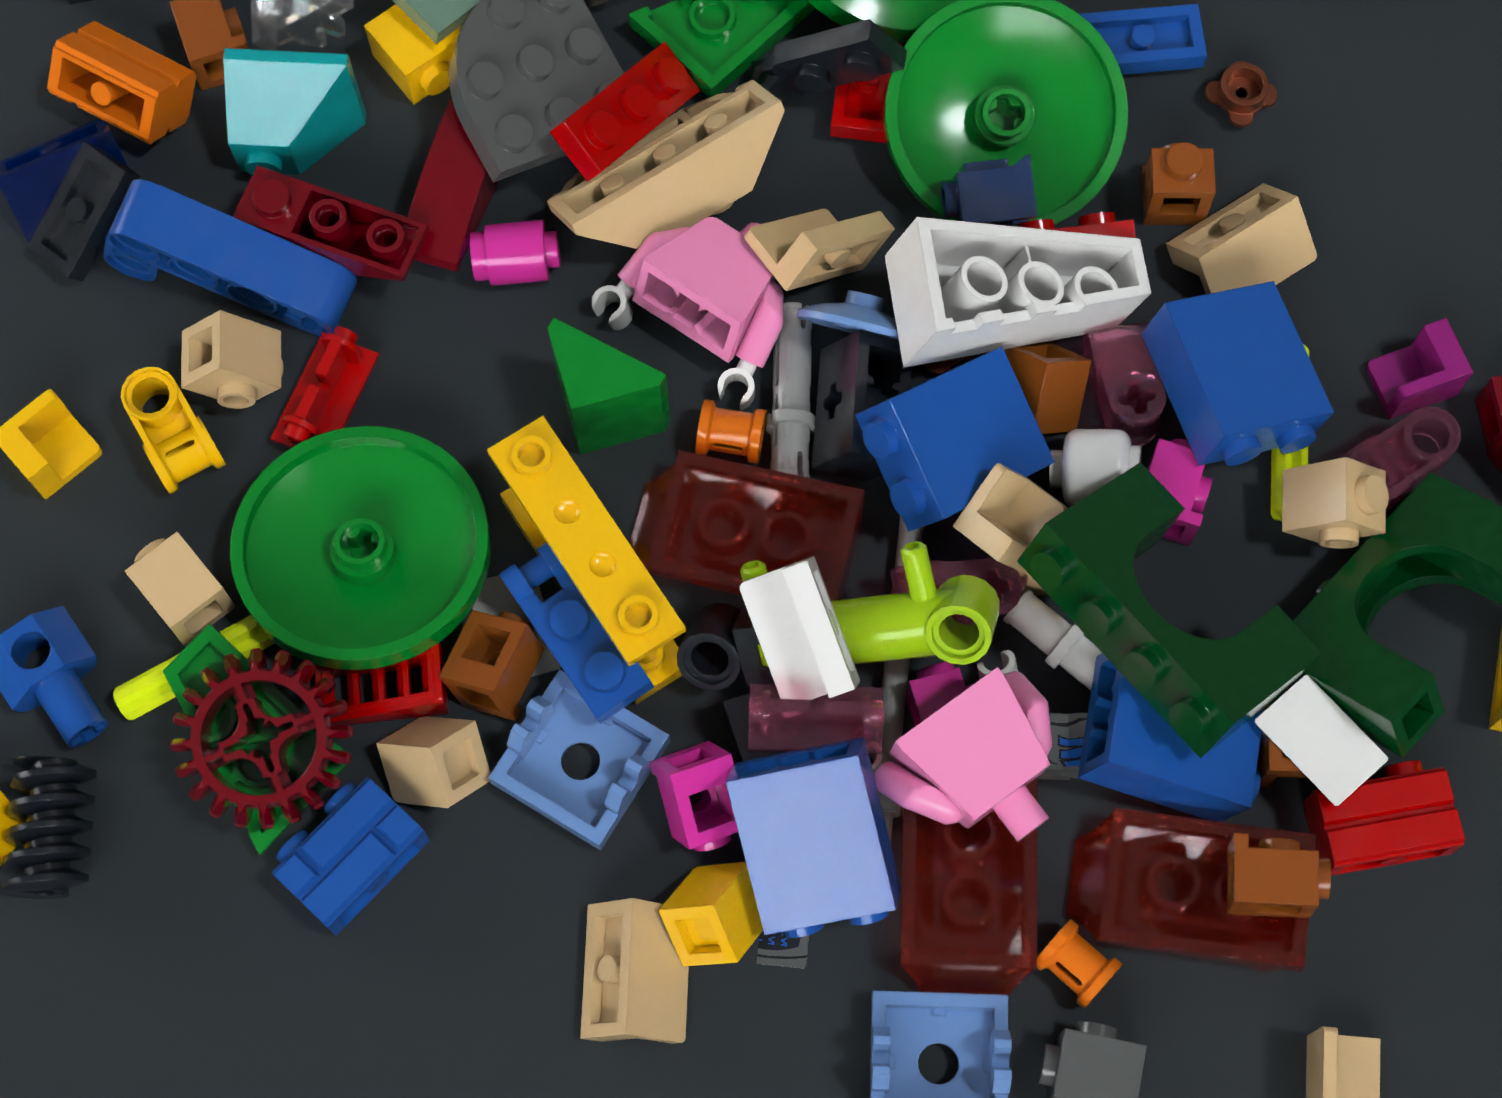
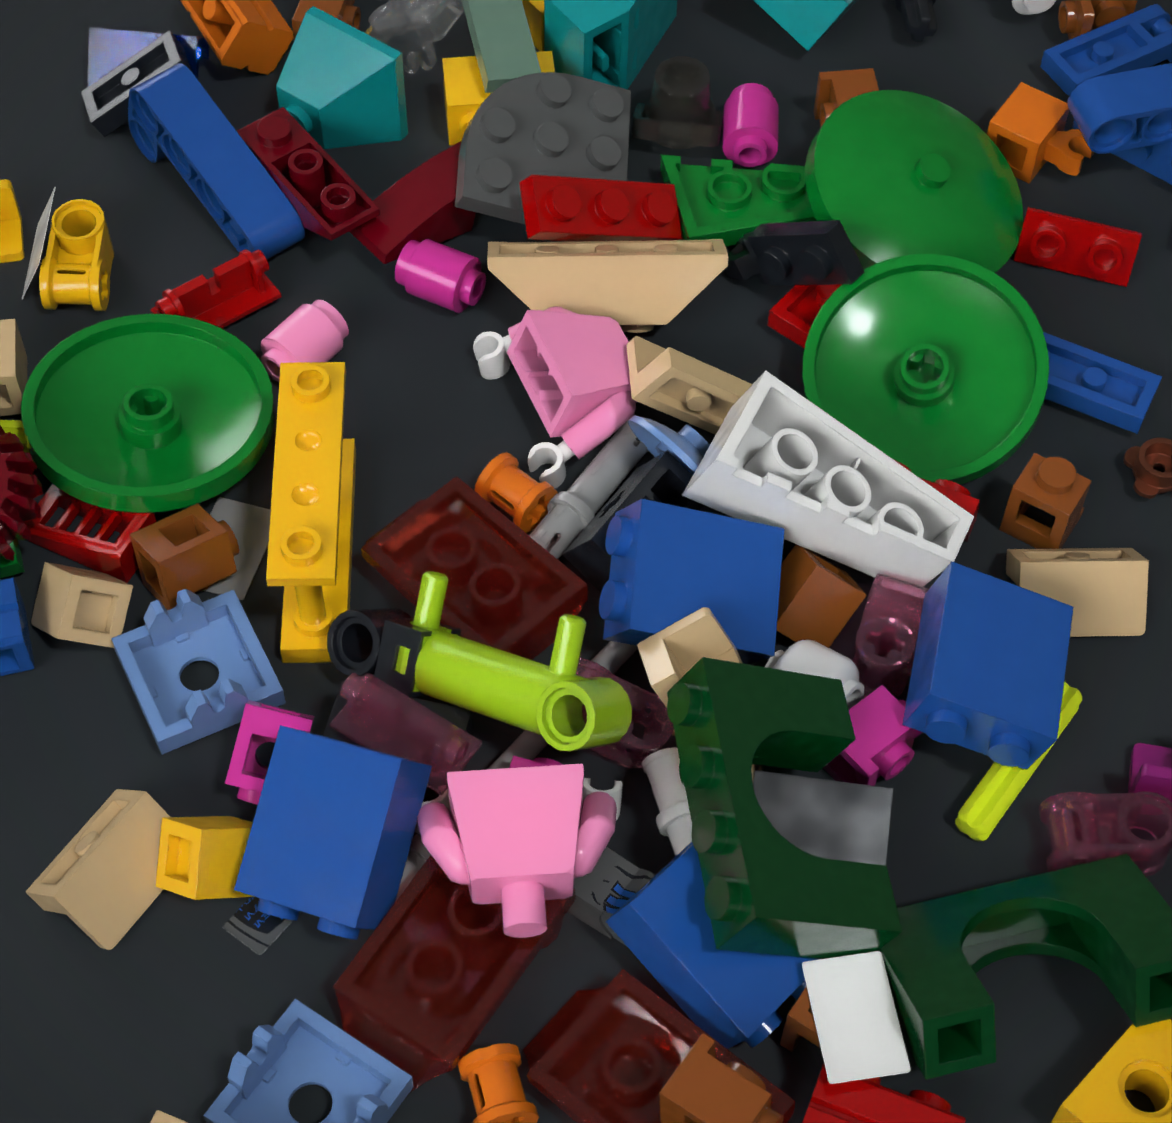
camera: 30 degrees right, 15 degrees down
(118, 433) = (38, 243): none -> white sticker
(231, 359) = (161, 233): tan brick -> none
(442, 393) = (306, 335): none -> bright pink brick
(576, 637) = (257, 612): blue plate -> none
(606, 391) = (425, 399): green slope -> none
(800, 632) = (437, 642): white panel -> none
(991, 193) = (869, 411): dark blue window -> none
(1199, 584) = (827, 815): none -> black brick
(1334, 502) = (1013, 824): tan brick -> none

